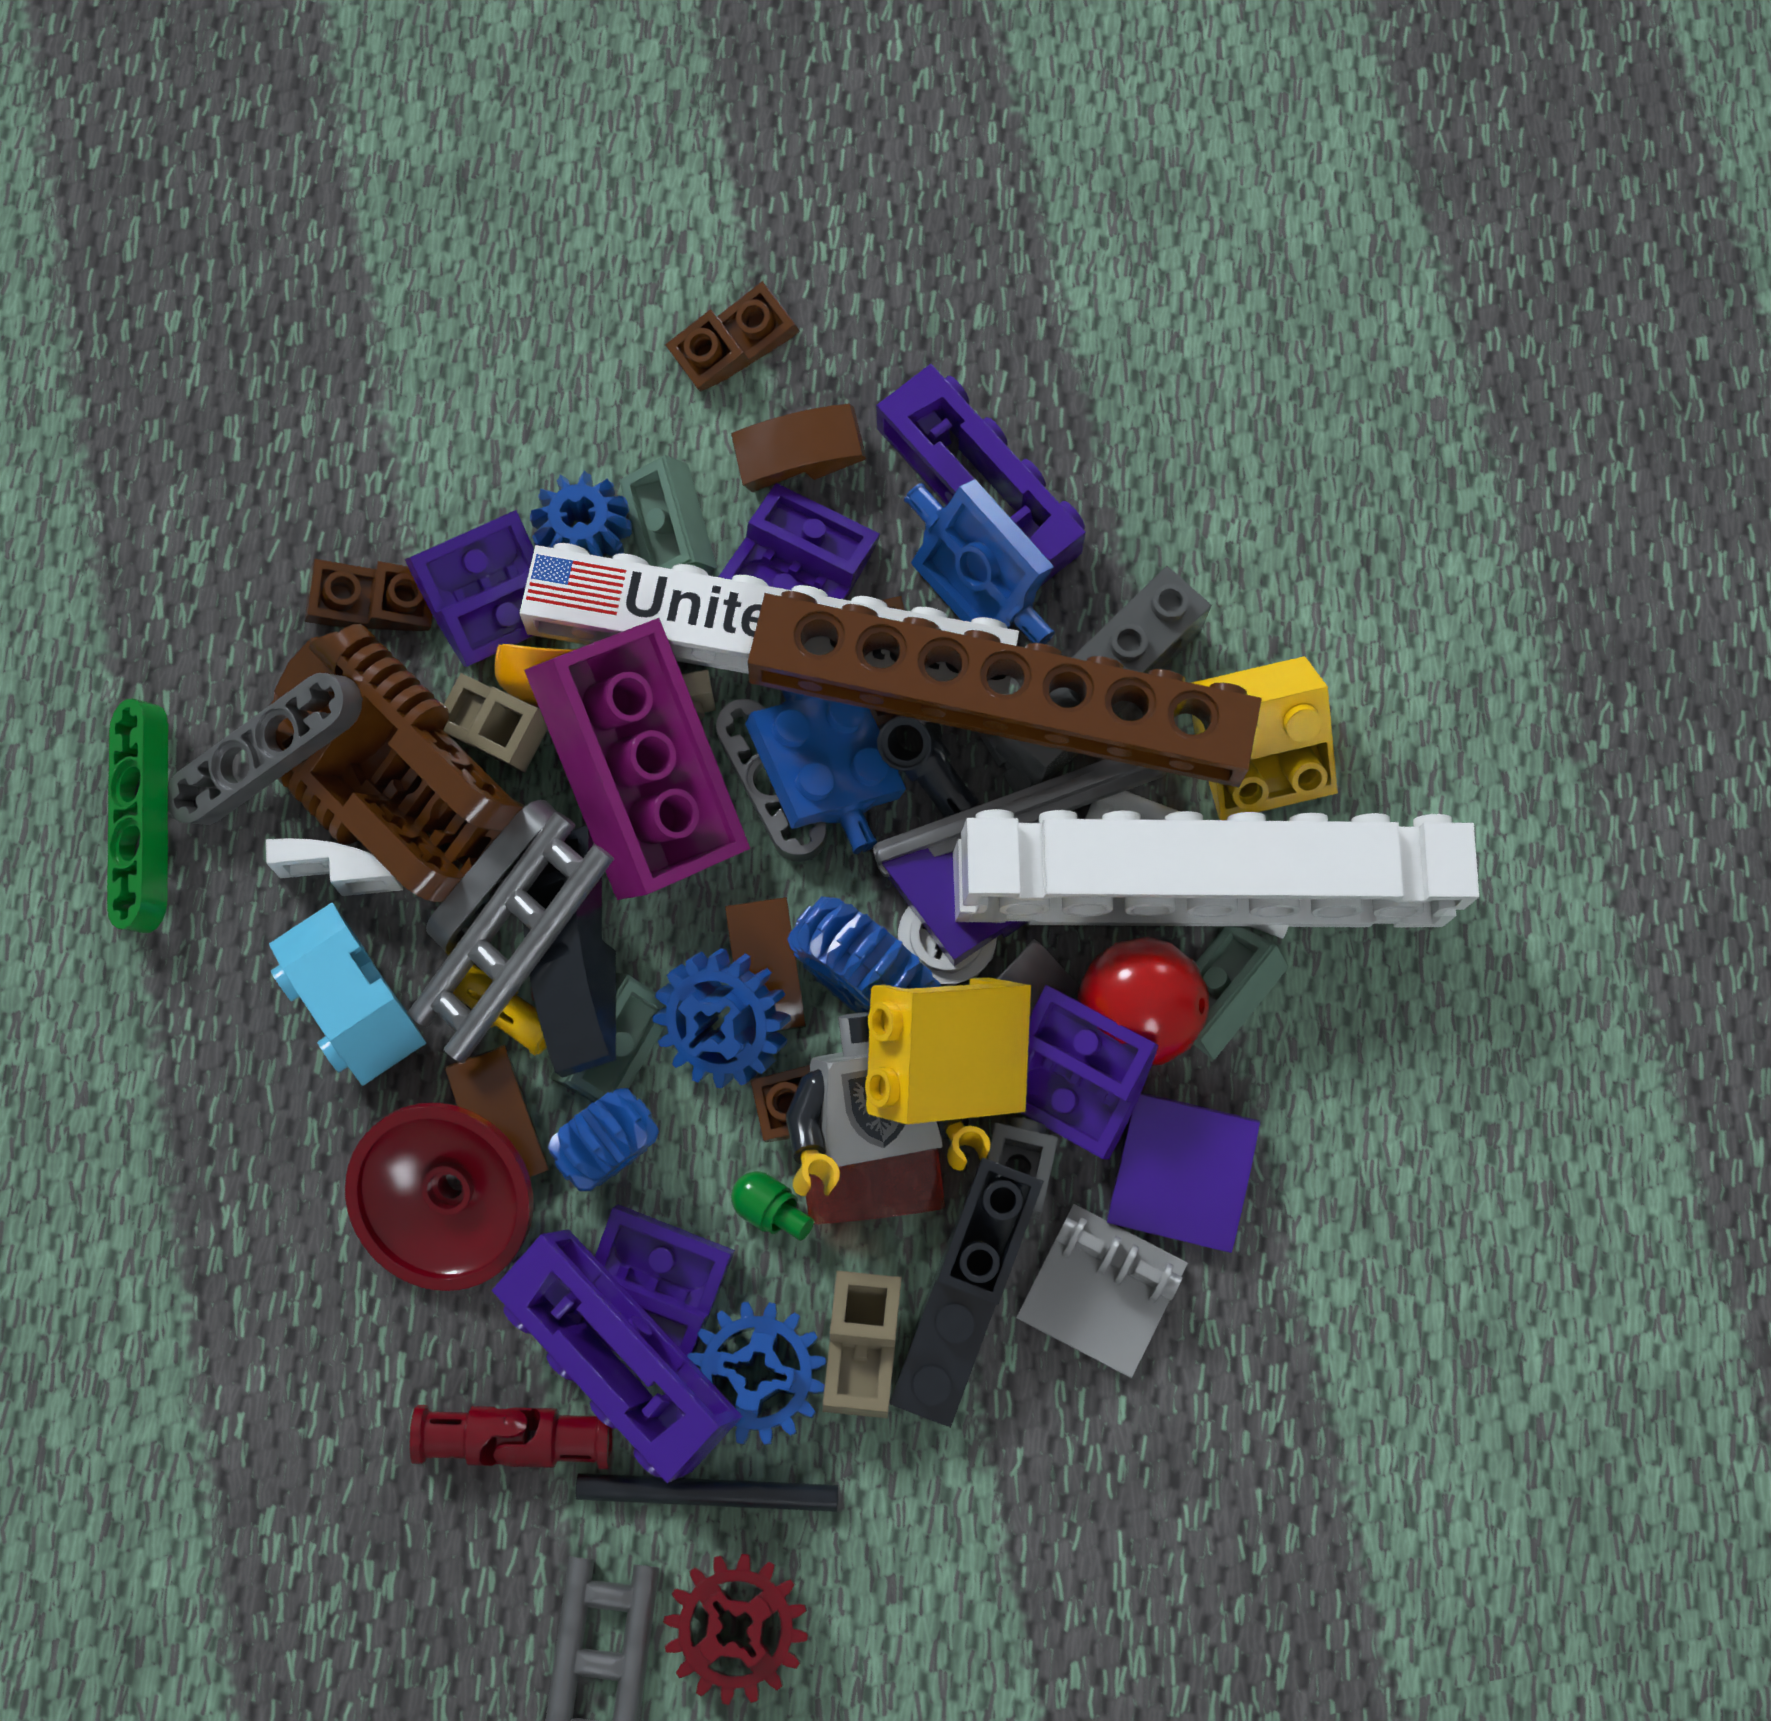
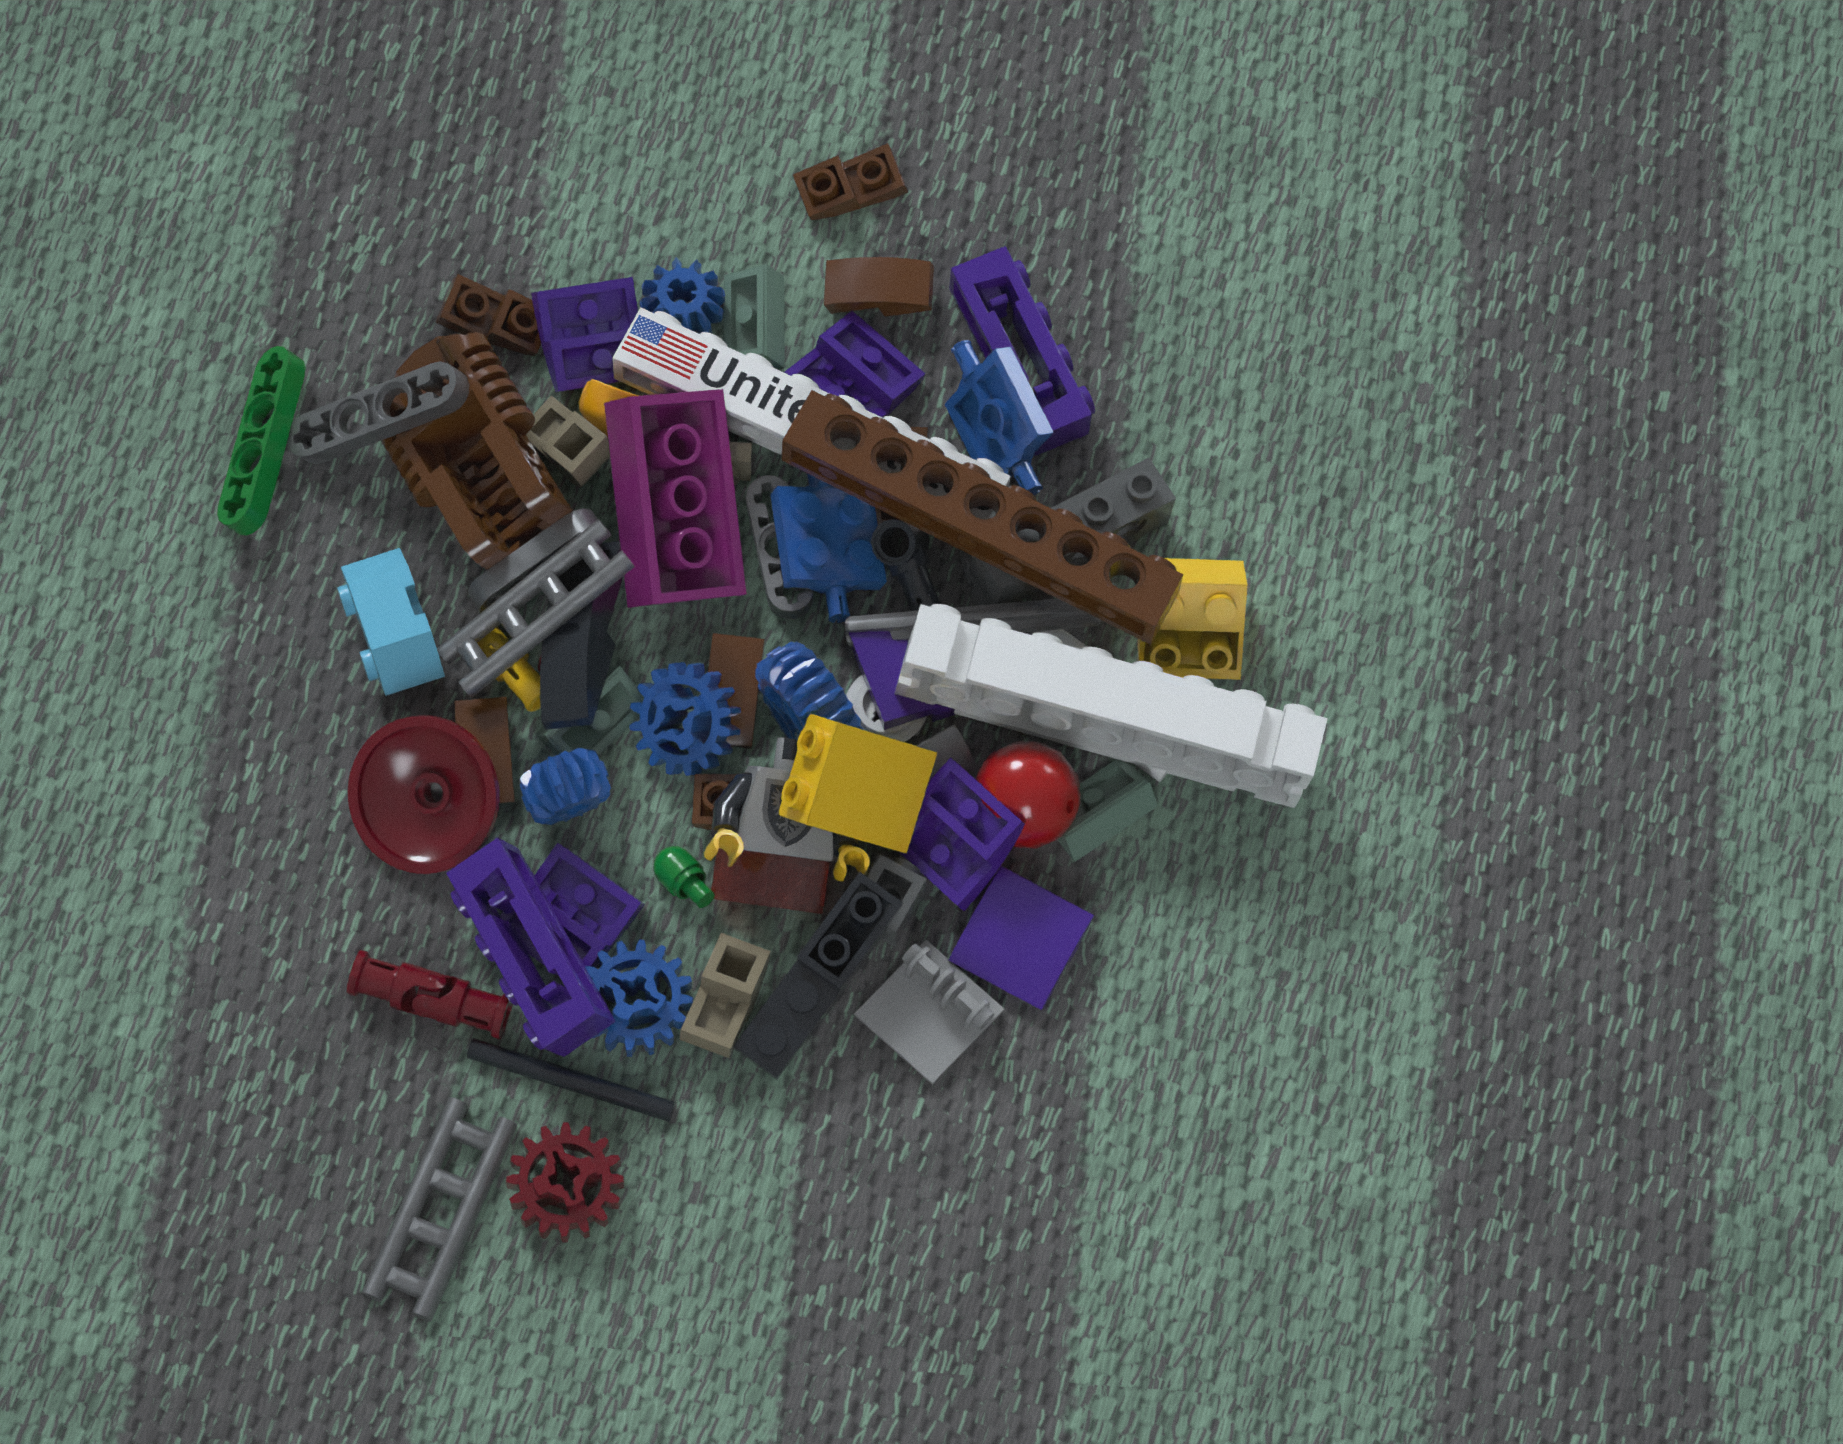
camera: 10 degrees right, 5 degrees down
(349, 868) = (421, 526): white slope -> none

